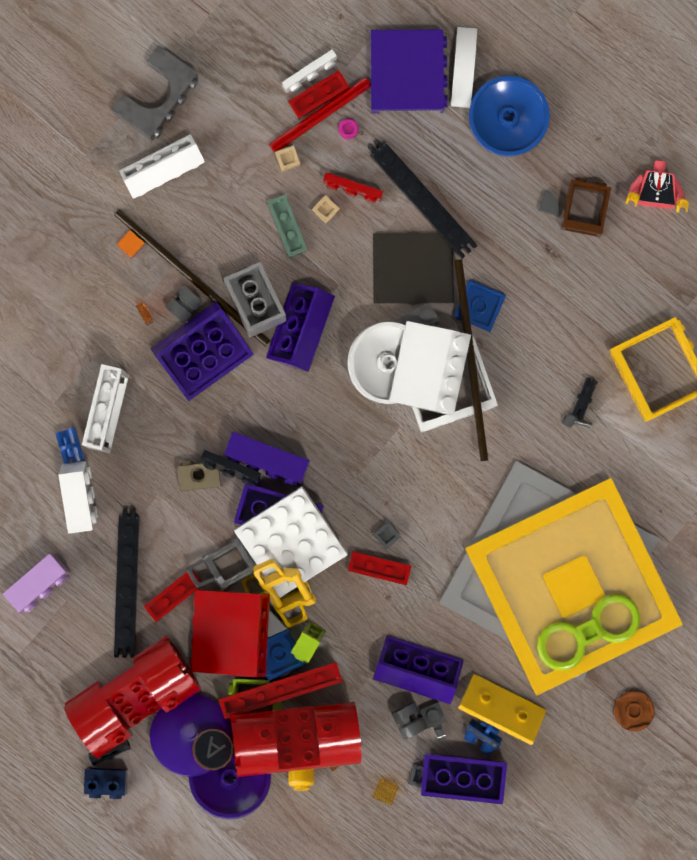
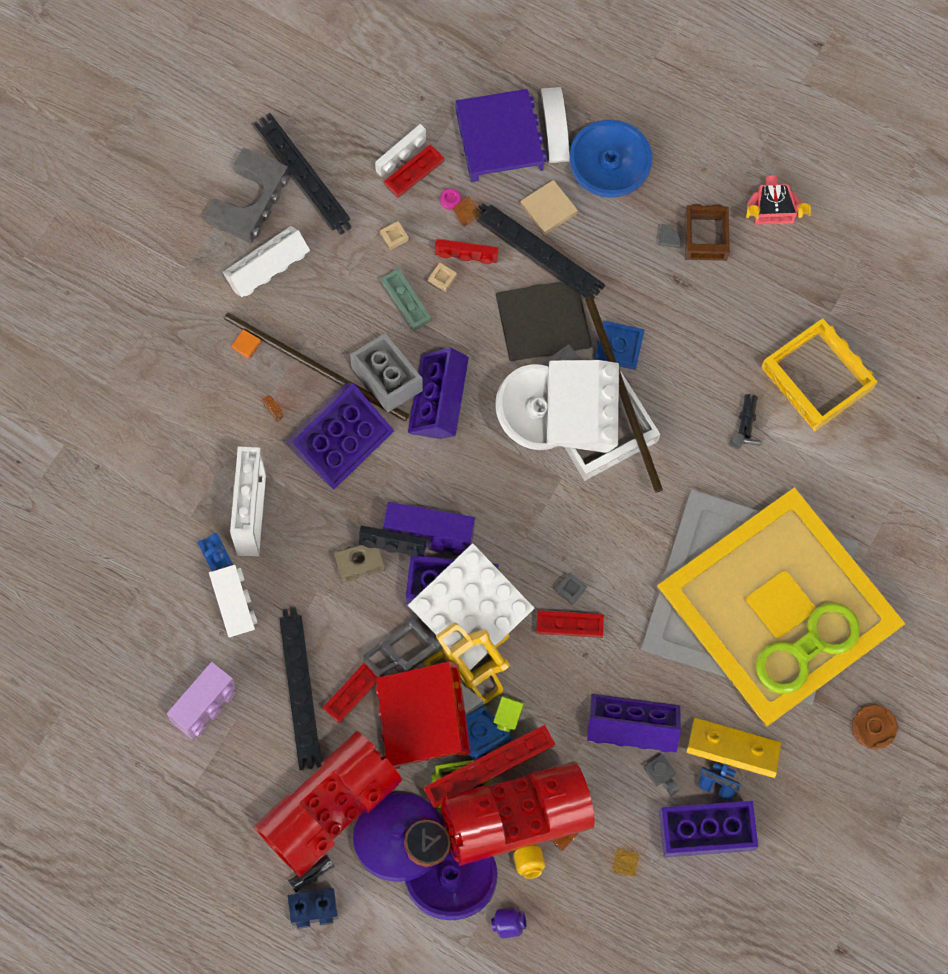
camera: 15 degrees left, 15 degrees down
(183, 304) = (314, 388): dark grey wheel -> none
(211, 79) = (303, 174): none -> black hinge
(273, 826) = (509, 922): none -> dark purple head
(320, 115) = (419, 190): red axle -> none
(361, 145) = (466, 211): none -> clear orange tile
(411, 727) = (635, 778): dark grey wheel -> none
(416, 776) = (655, 840): dark grey tile -> none
(440, 153) = (548, 207): none -> tan tile

